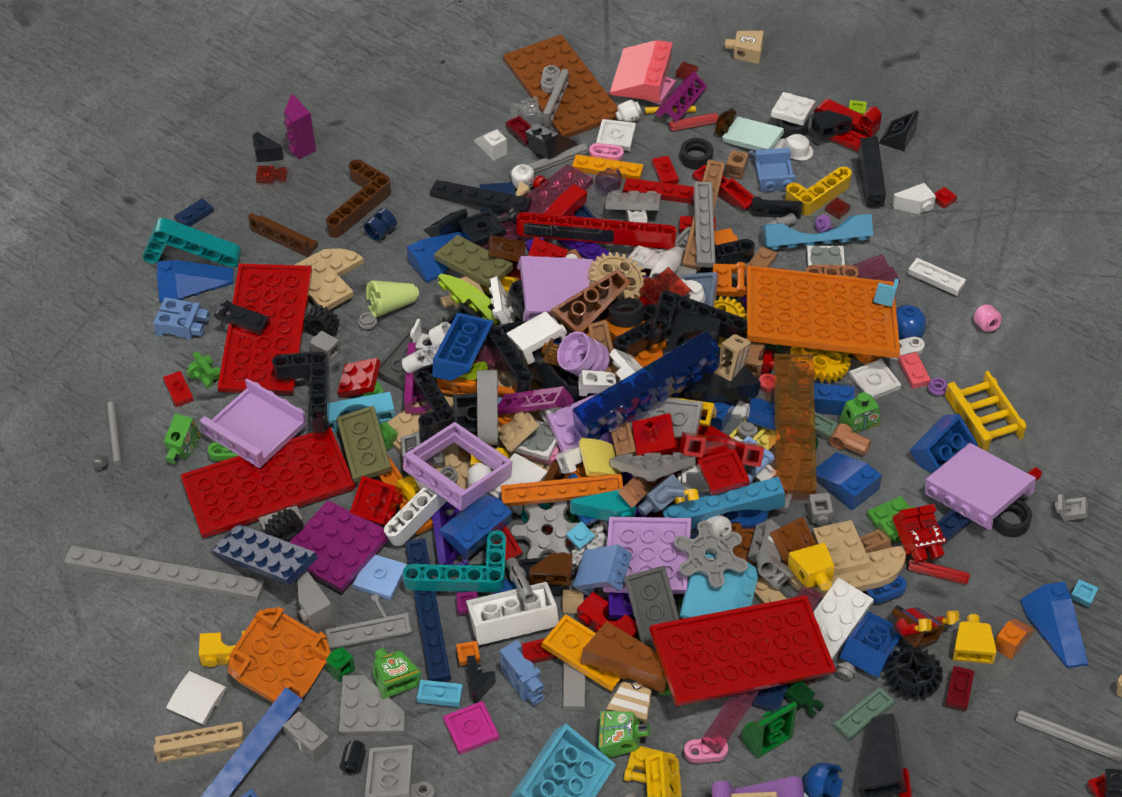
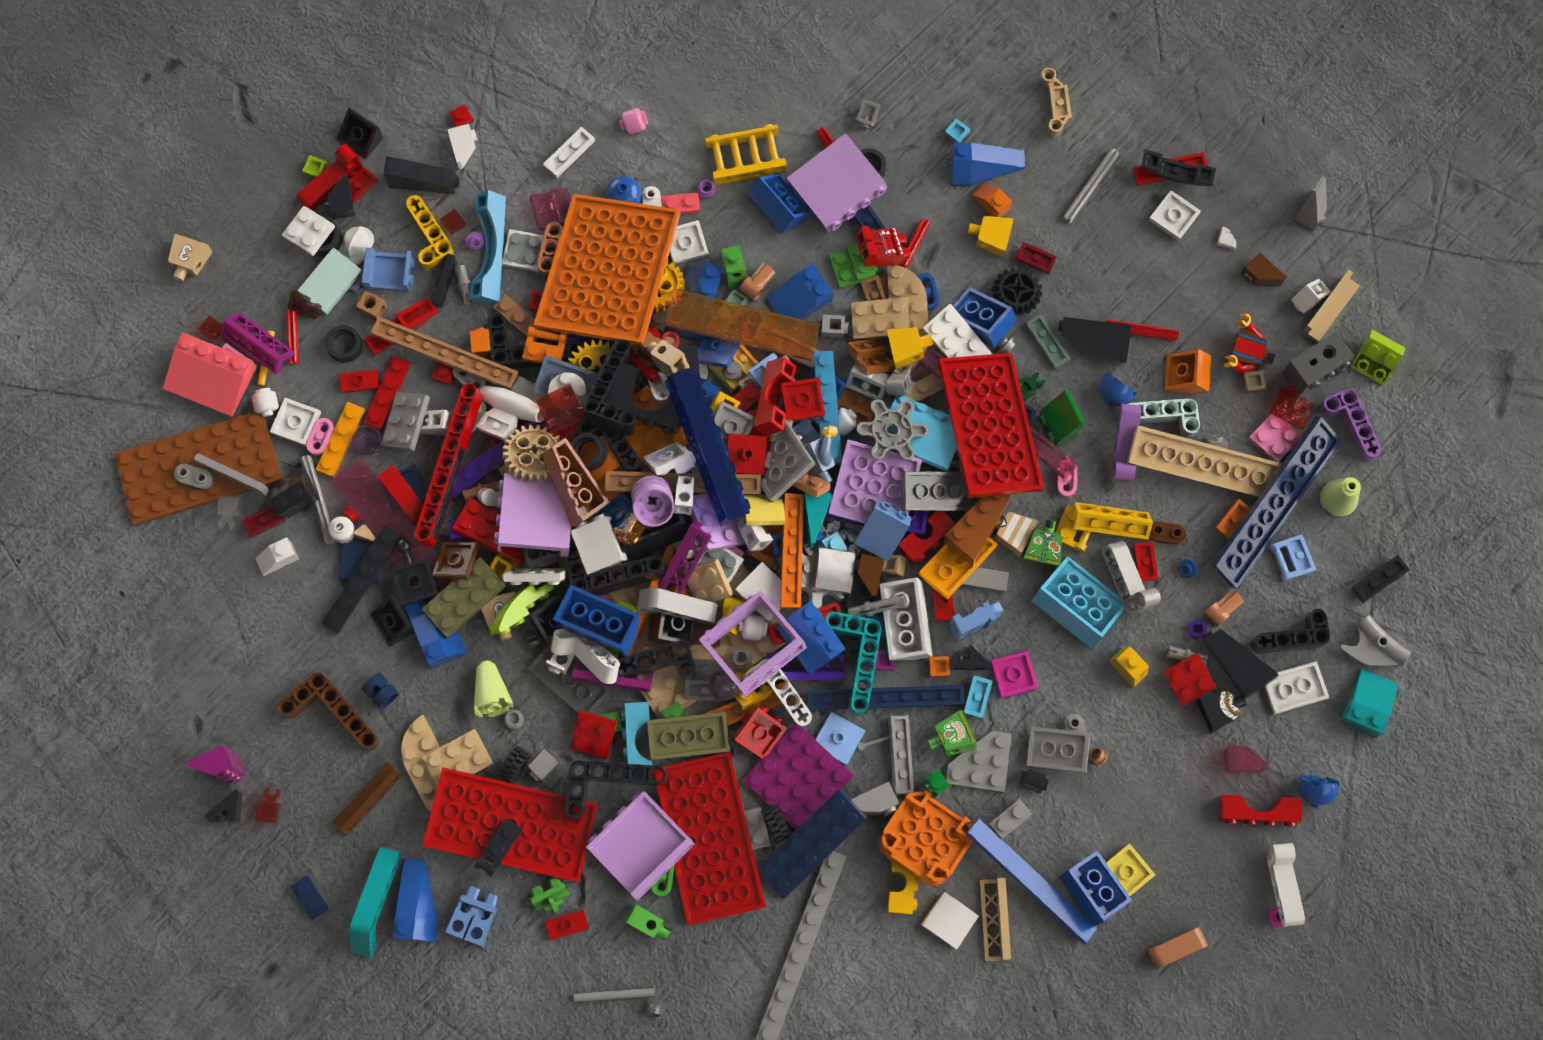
camera: 85 degrees left, 25 degrees up
(552, 535) = (834, 569): none -> slope
(704, 224) = (463, 355): light grey tile -> none
(886, 293) = (599, 202): medium azure panel -> none
(919, 626) = (975, 272): torso -> none

